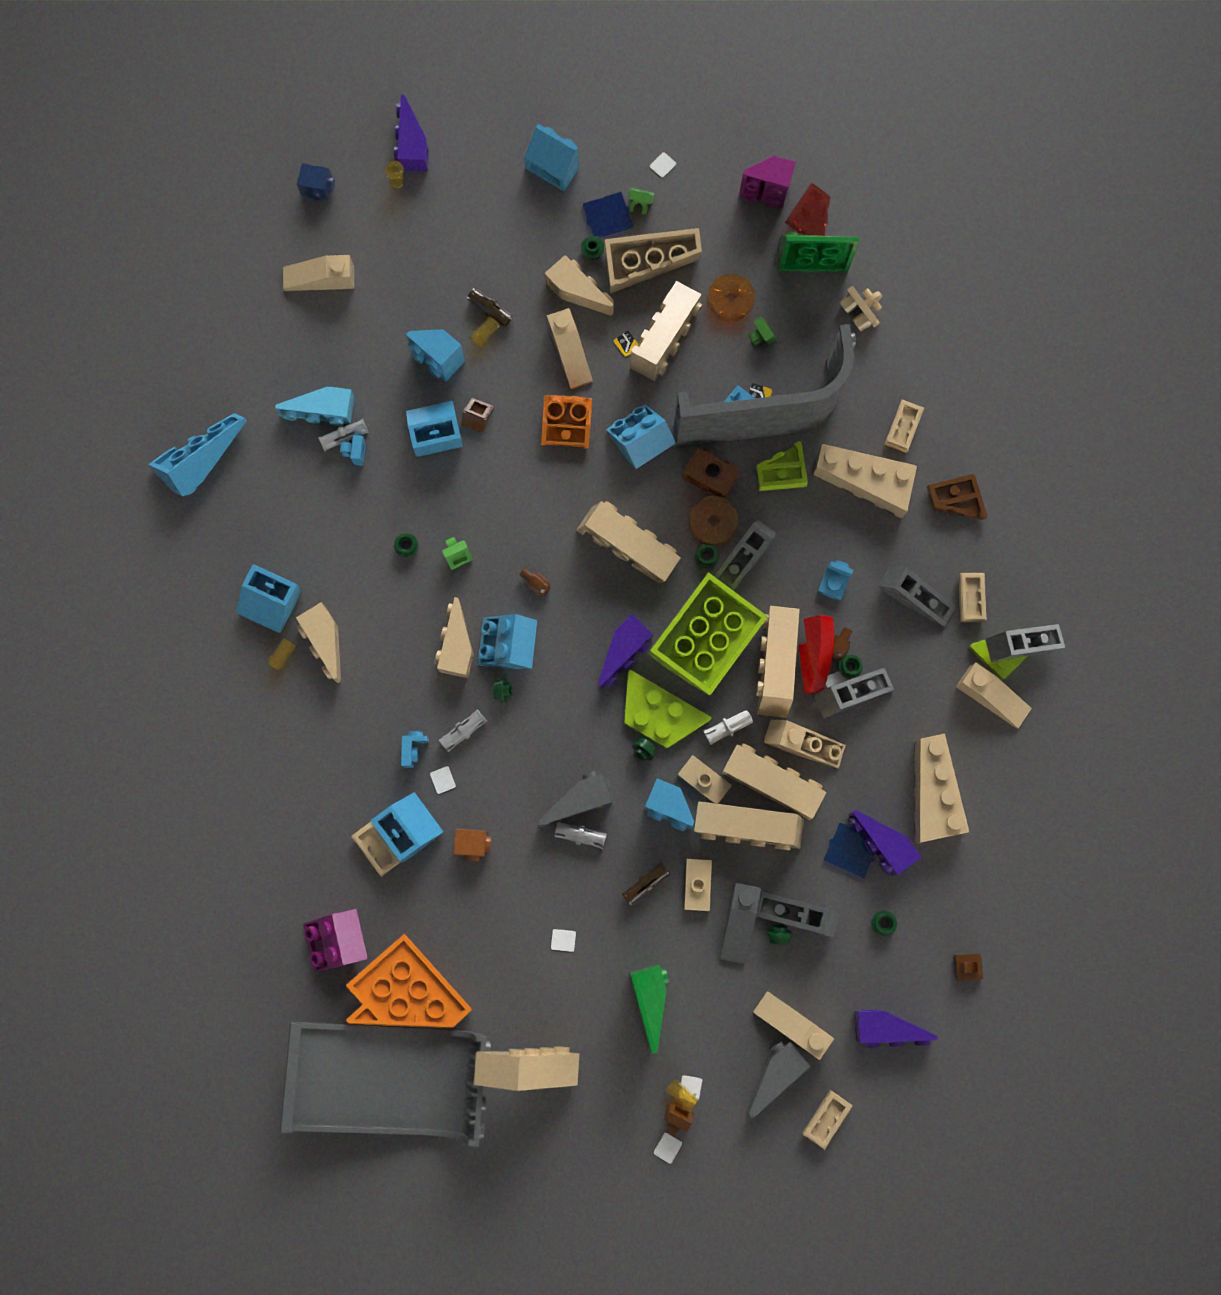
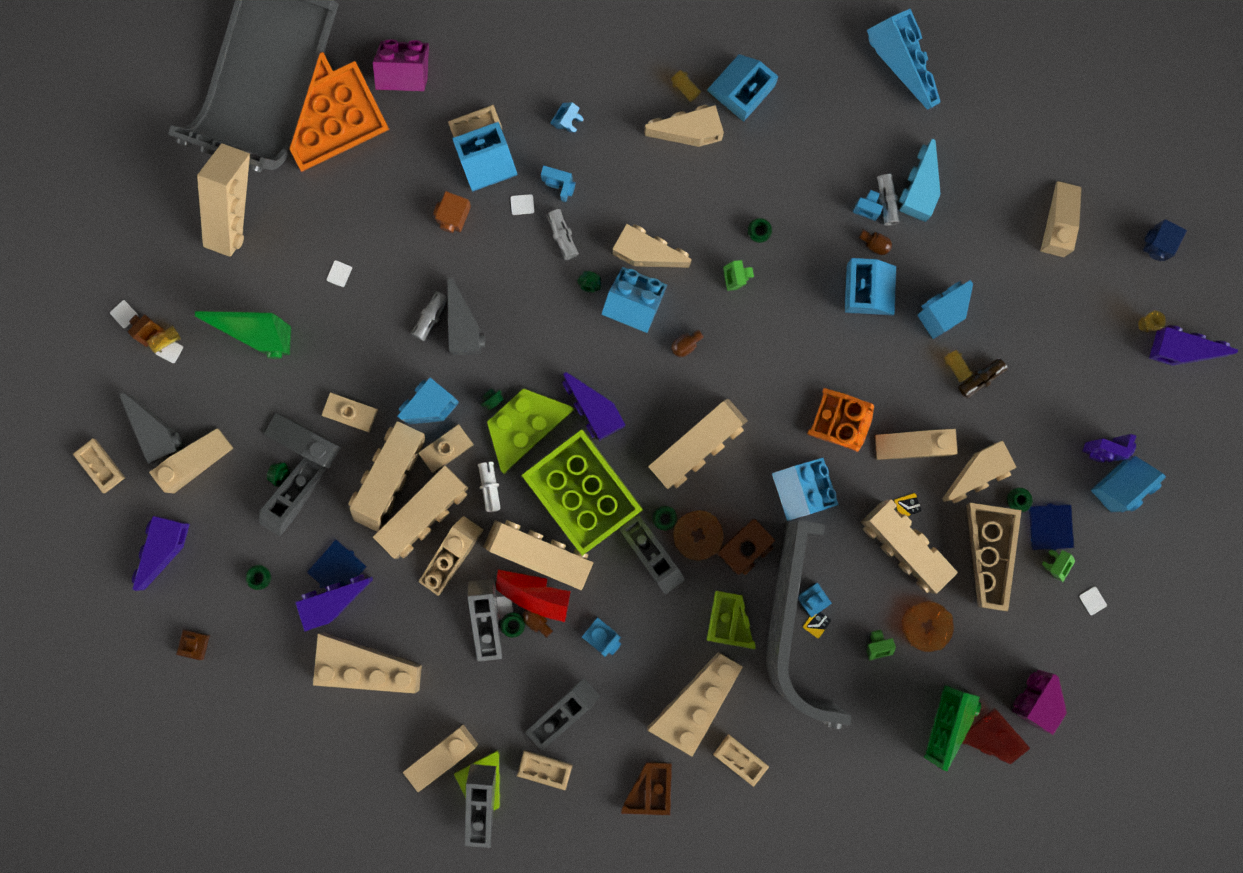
camera: 105 degrees right, 5 degrees up
(343, 761) = (565, 115): none -> dark azure tile
(387, 435) = (876, 242): none -> reddish brown cylinder
(476, 414) = (874, 335): reddish brown slope -> none
(522, 173) = (1119, 449): none -> dark purple bracket
(646, 884) = (364, 363): dark brown pin -> none
(854, 300) = (889, 754): tan hips -> none

